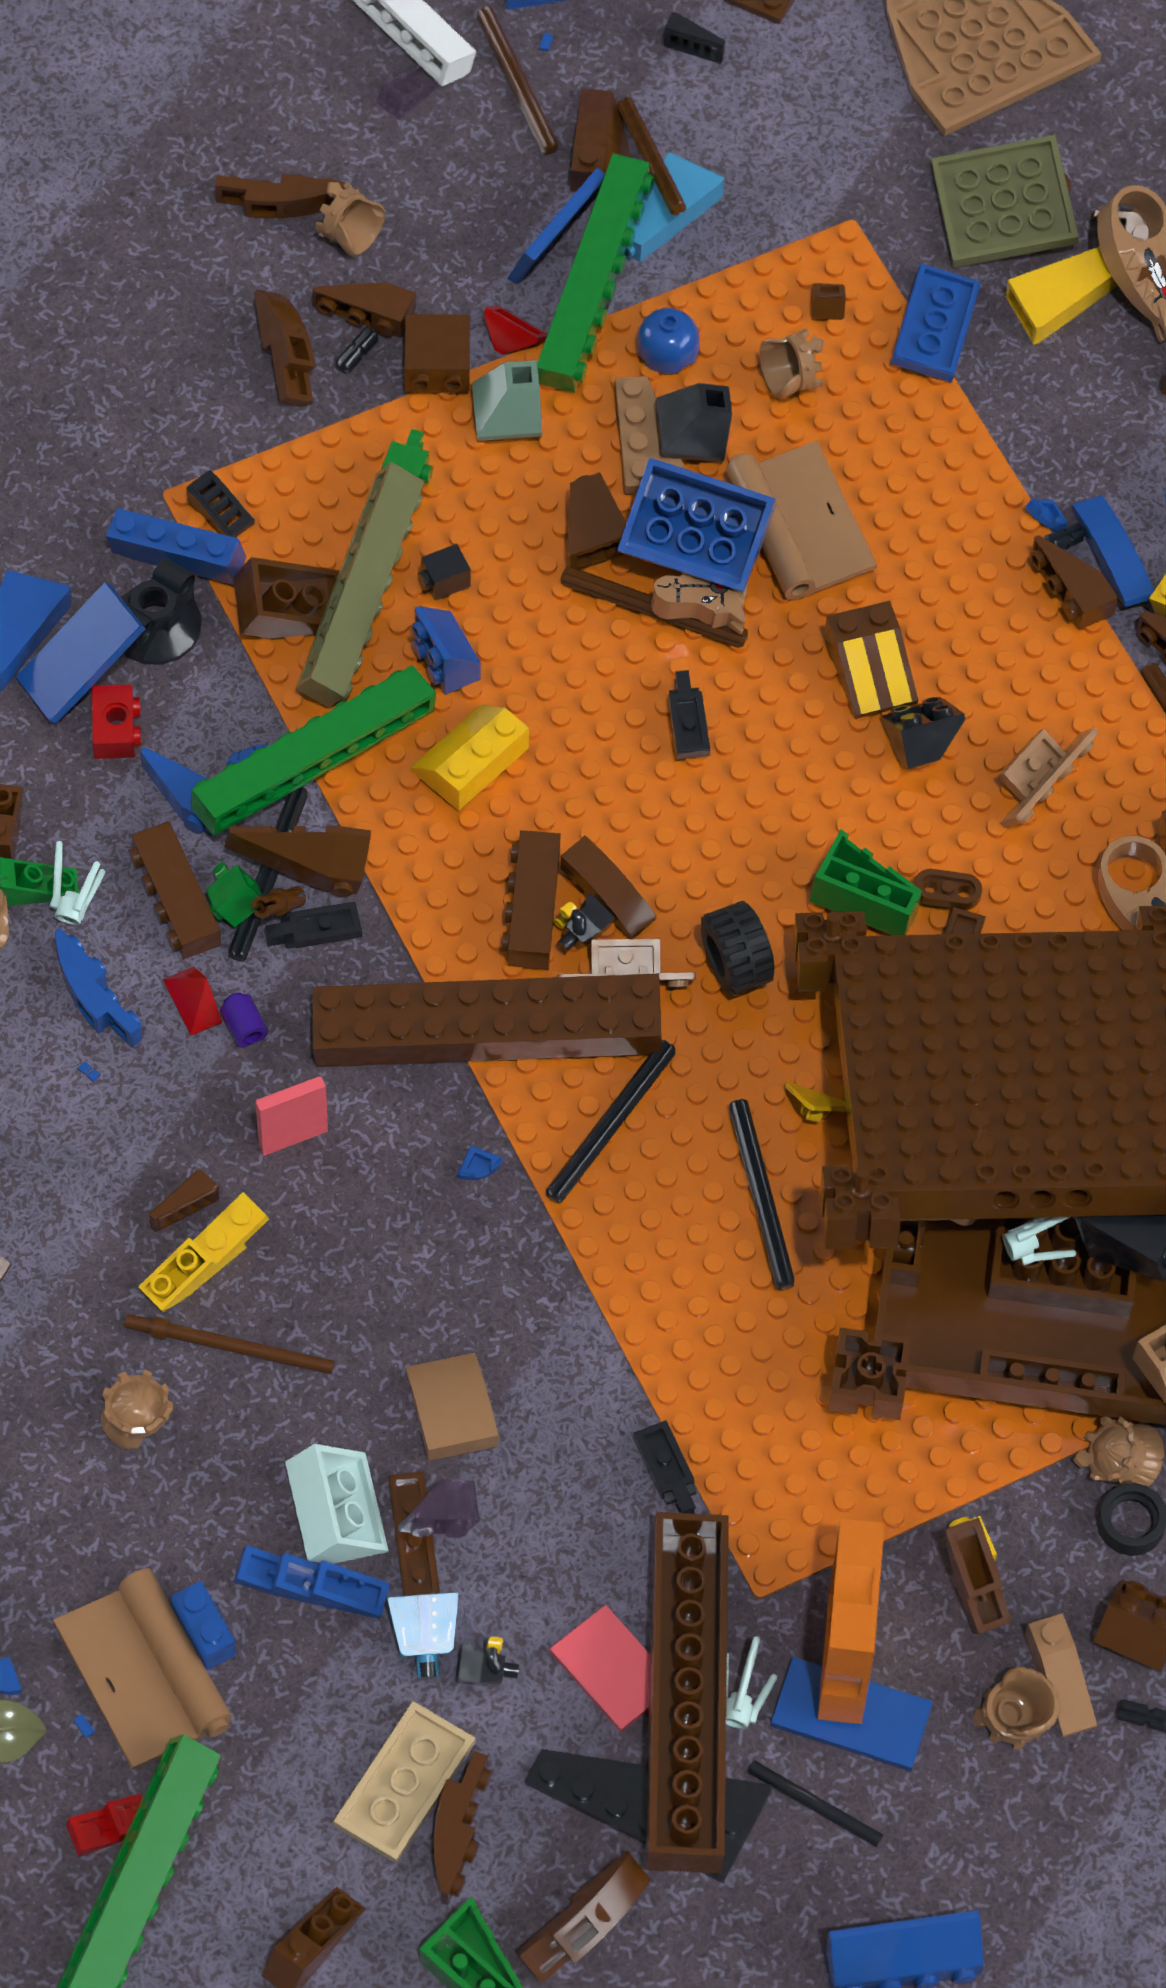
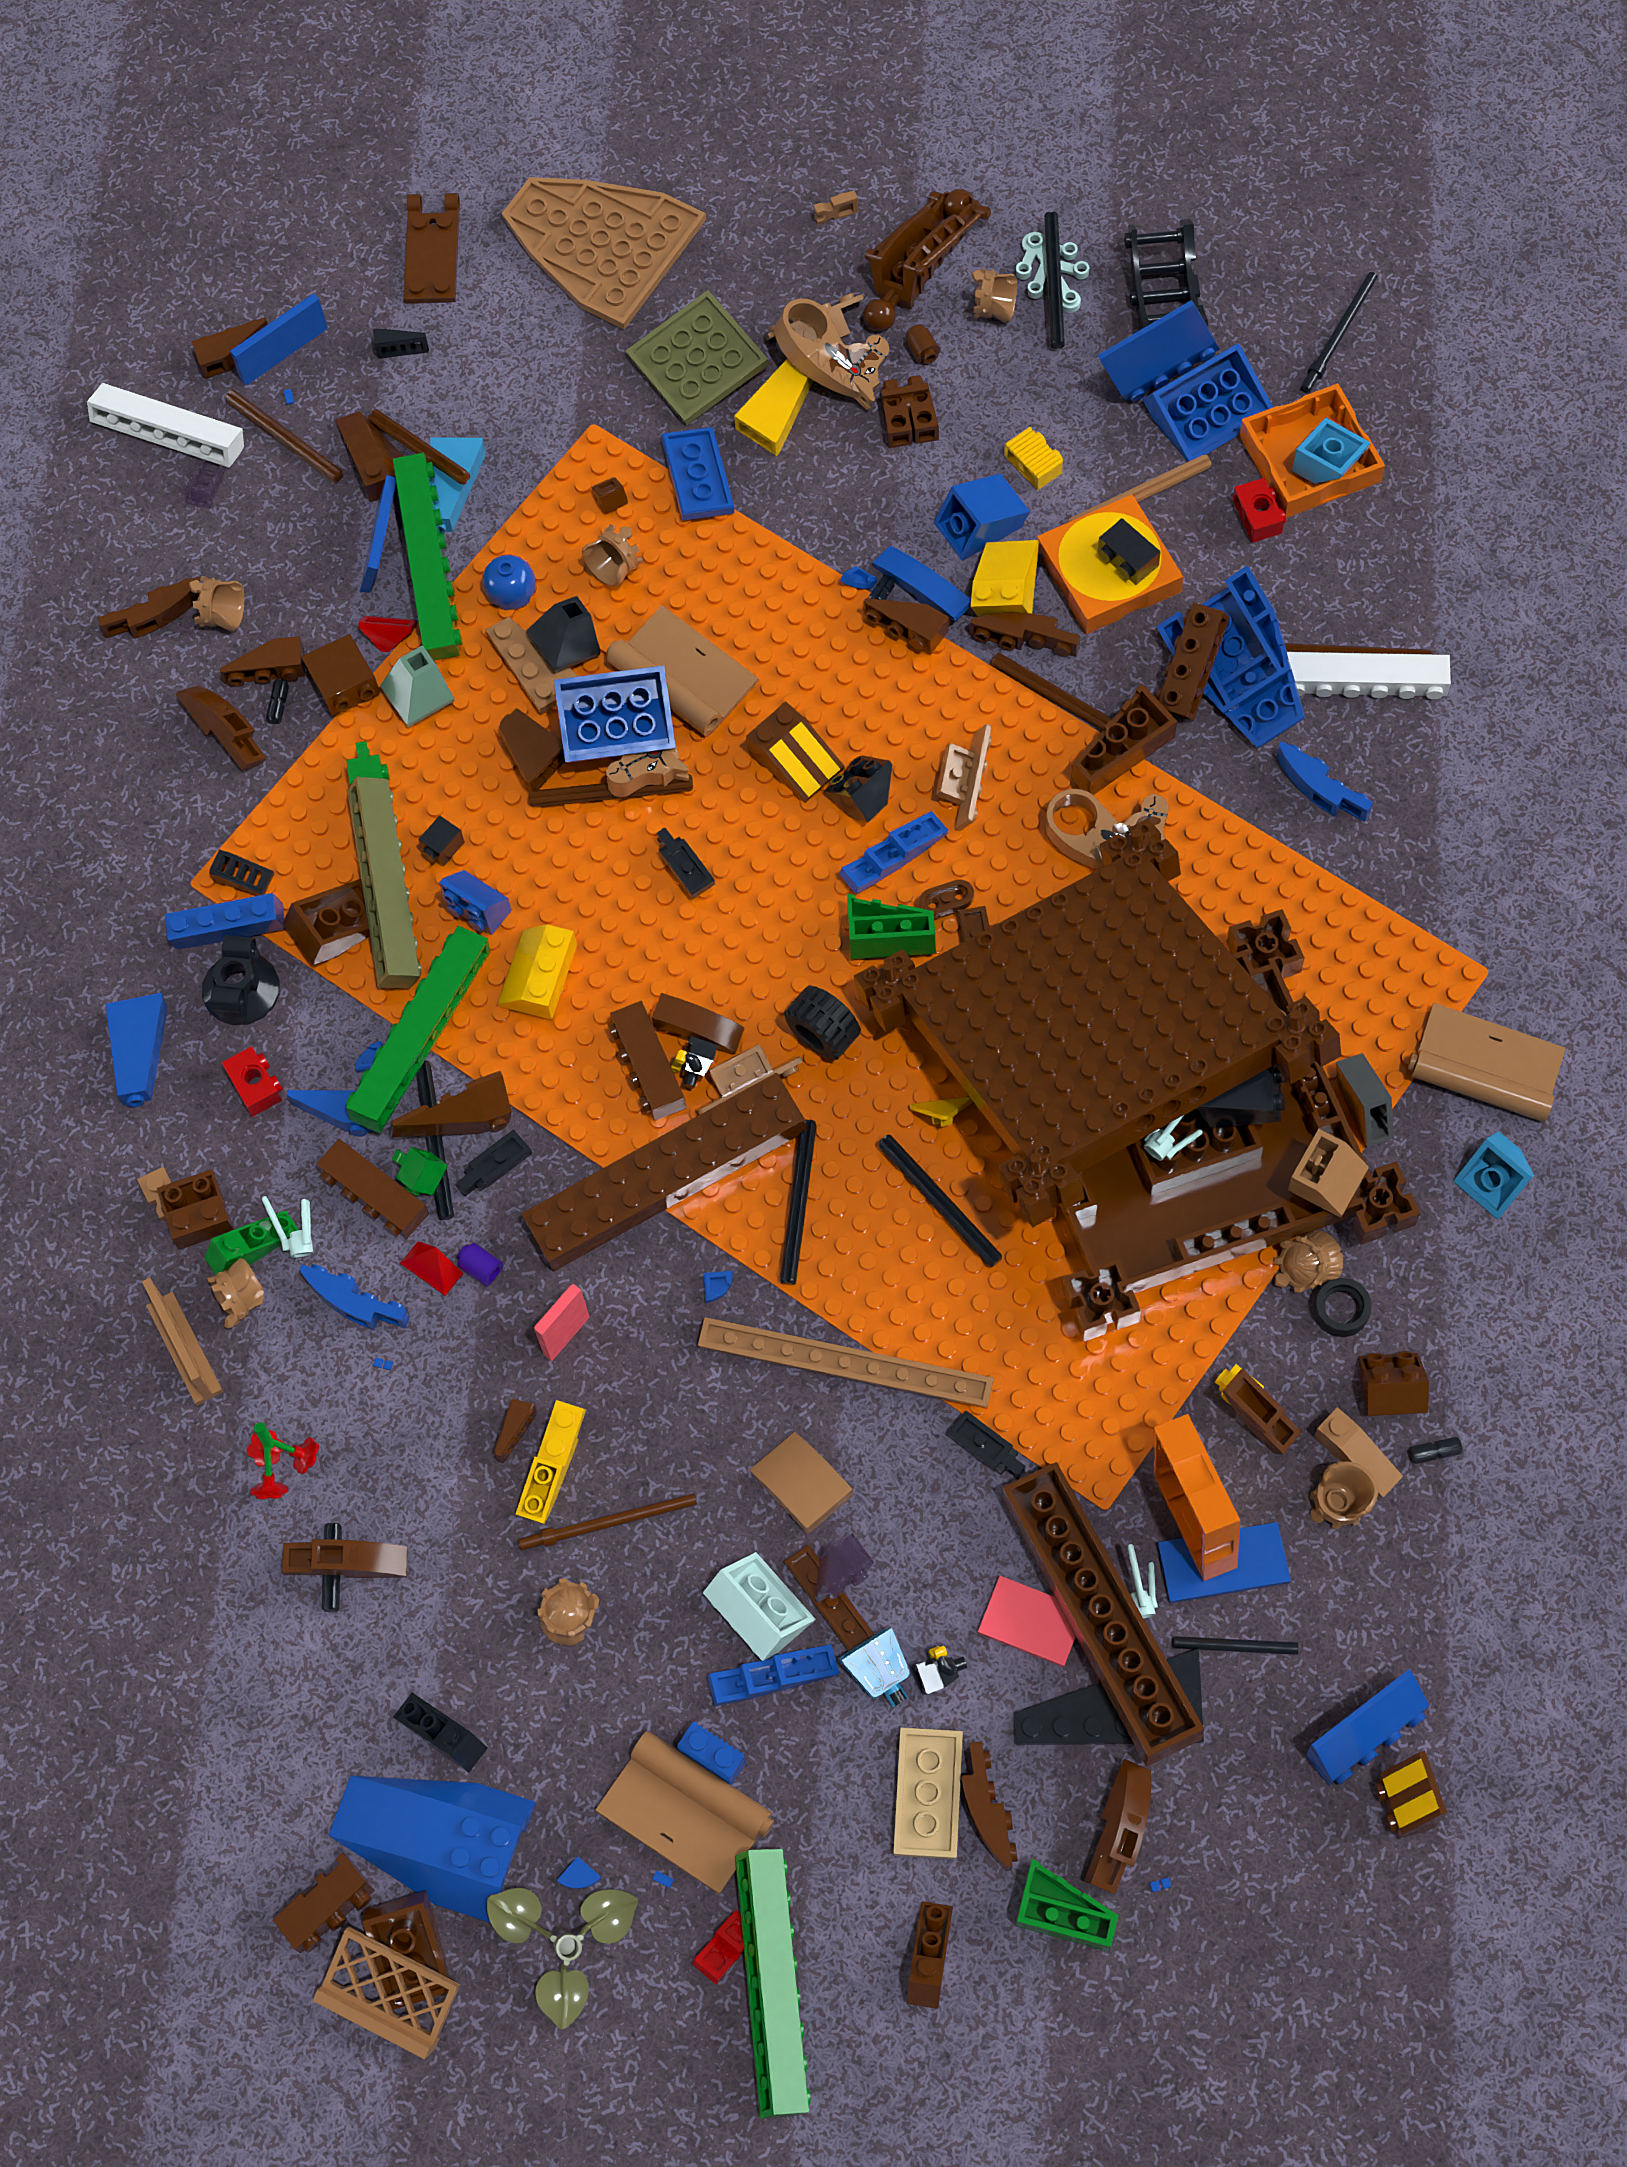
camera: 20 degrees left, 5 degrees up
(80, 653) = (199, 1041): blue tile -> none
(278, 902) = (457, 1159): reddish brown pin -> none
(568, 1309) = (846, 1362): none -> medium nougat plate
(919, 815) = (894, 852): none -> blue slope

